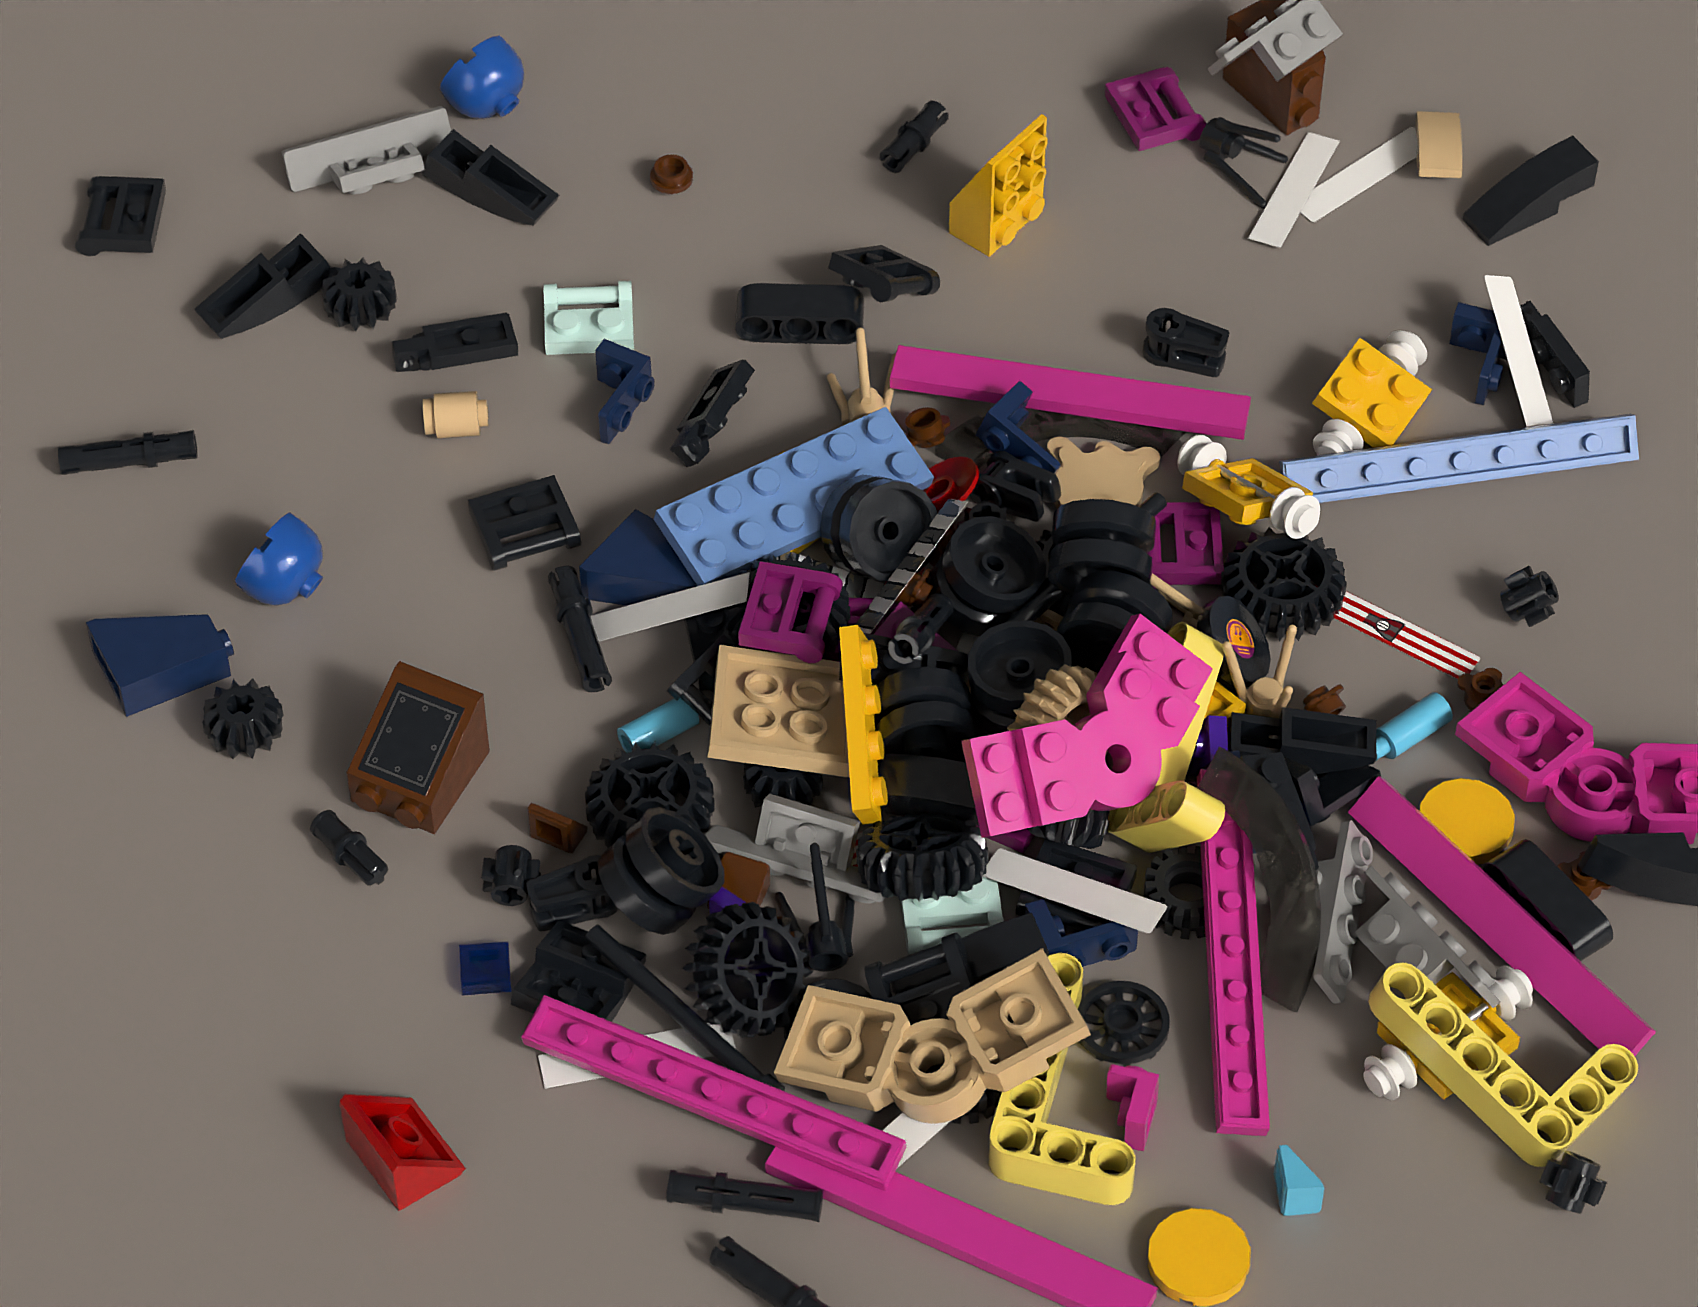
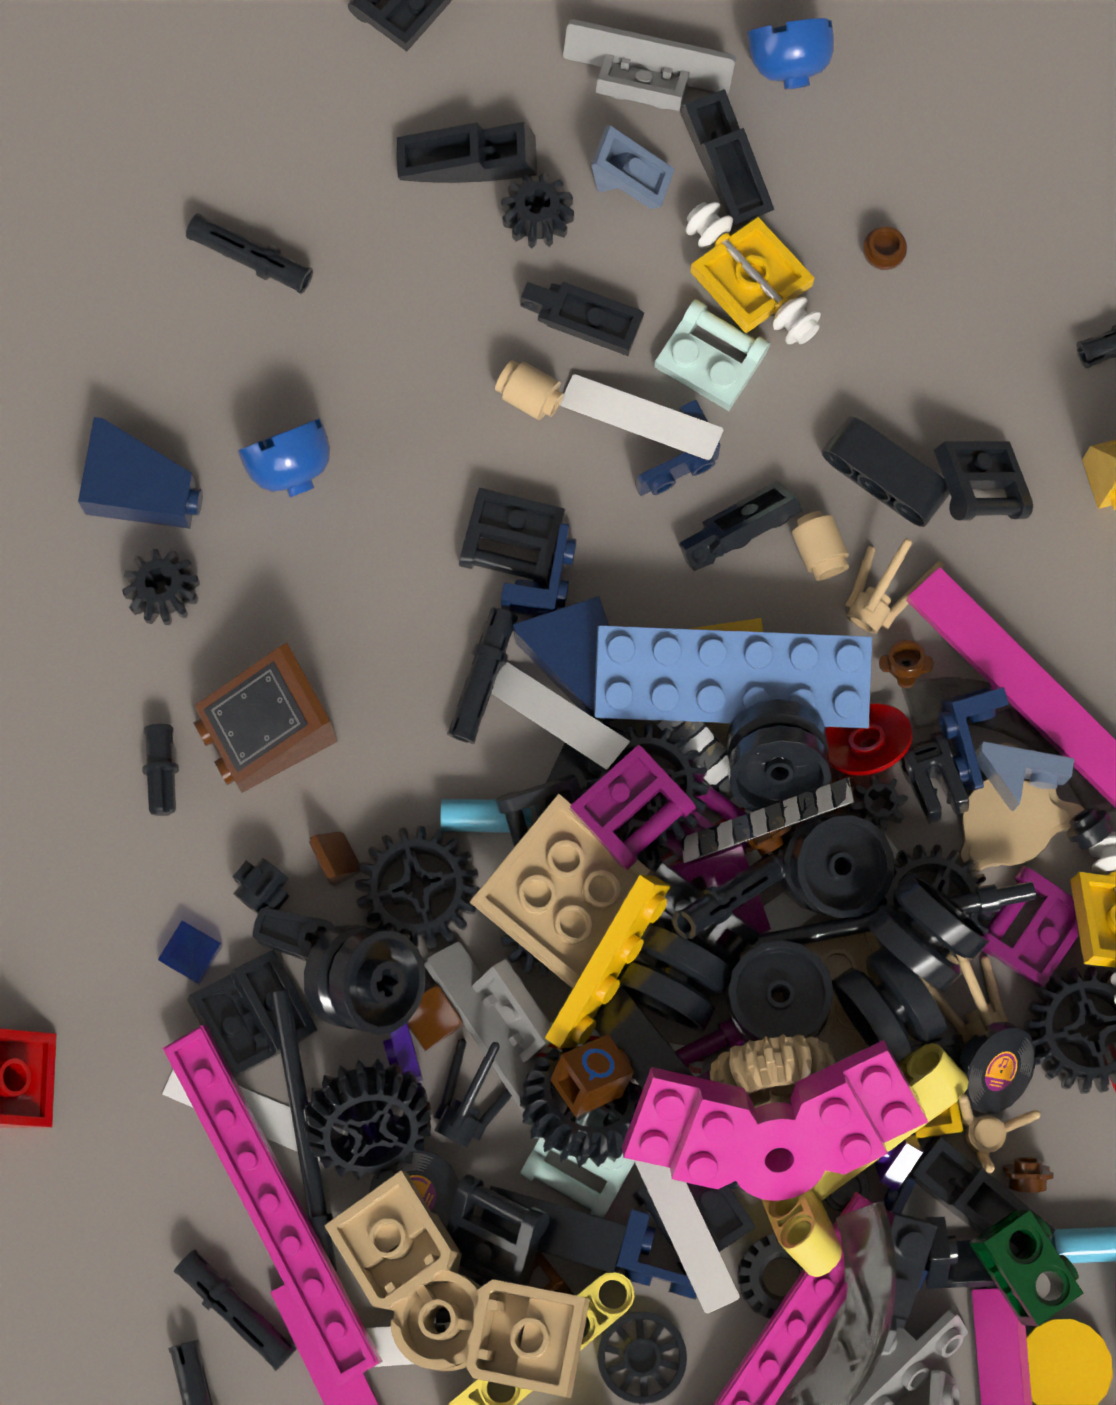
camera: 35 degrees right, 25 degrees up
(417, 222) = (631, 168): none -> sand blue slope
(567, 379) = (642, 417): none -> white sticker
(576, 547) = (528, 598): none -> dark blue bracket
(577, 243) = (752, 274): none -> yellow plate
(789, 388) = (821, 545): none -> tan brick
(914, 810) = (592, 1075): none -> reddish brown brick
(1077, 435) = (1010, 765): none -> sand blue slope
(1166, 448) = (1089, 828): none -> black plate
(1375, 744) = (1018, 1275): none -> dark green brick

